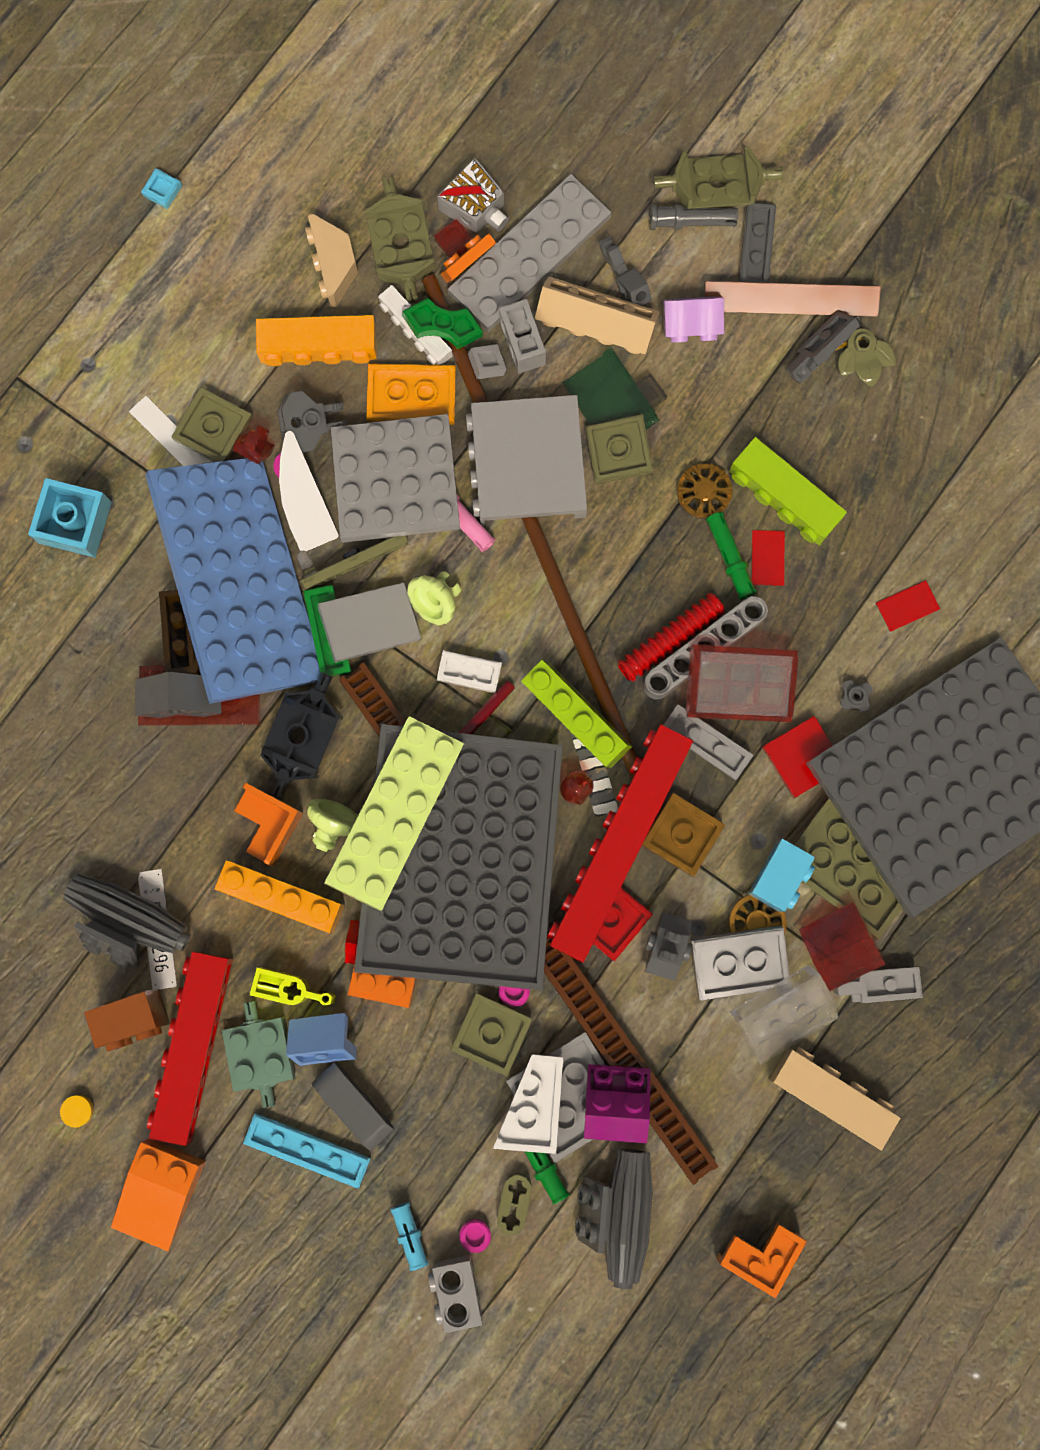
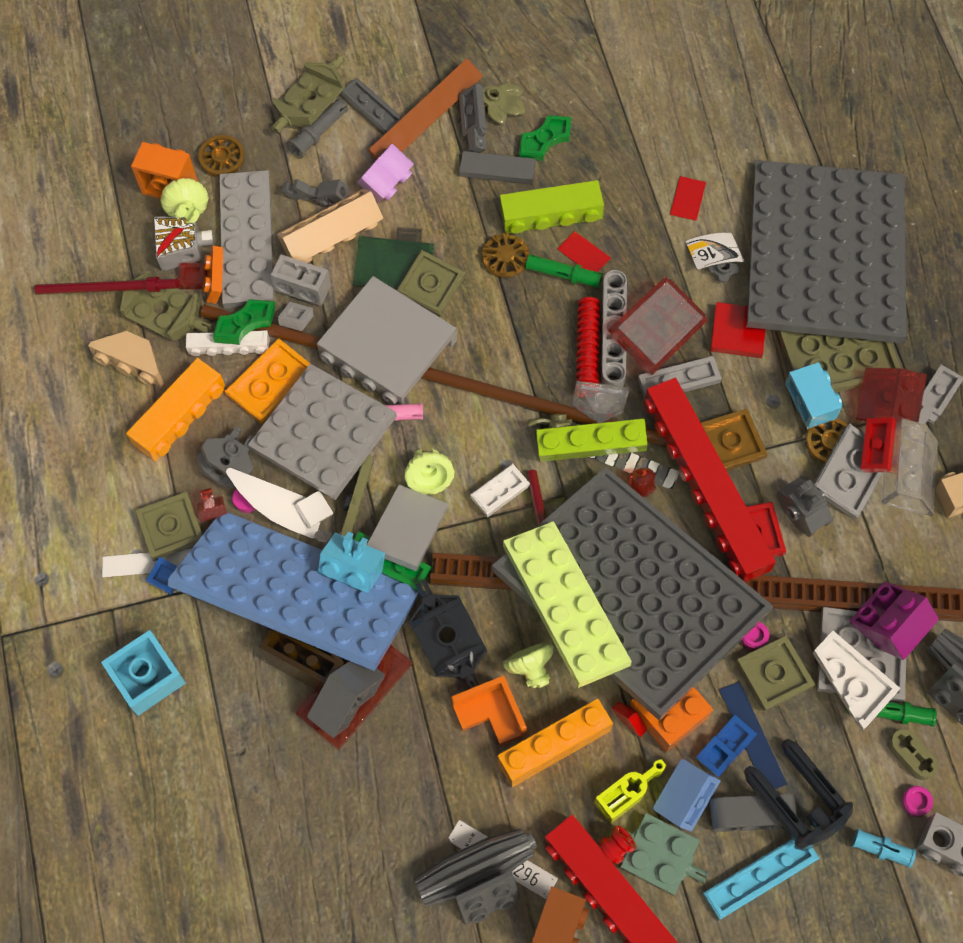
camera: 50 degrees left, 15 degrees down
(165, 456) = (159, 575): none -> blue plate
(234, 1015) = (617, 844): none -> red wheel
(291, 604) = (351, 562): none -> medium azure brick
(322, 531) = (314, 509): none -> white tile
(384, 1174) = (824, 826): none -> black piece
(395, 1040) = (726, 746): none -> blue slope
(405, 214) = (151, 284): none -> dark red bar
(423, 1055) = (758, 749): none -> dark blue sticker
(510, 170) = (184, 199): none -> yellowish green hair
(525, 127) = (159, 166): none -> orange brick
(568, 669) = (556, 421): none -> olive plate
(592, 158) = (221, 155): none -> pearl gold wheel
(622, 690) = (599, 400): none -> clear slope
(780, 969) = (878, 445): none -> red plate
(790, 409) = (497, 167): none -> dark grey tile
(869, 672) = (714, 249): none -> sticker
(873, 428) = (552, 132): none -> green tile

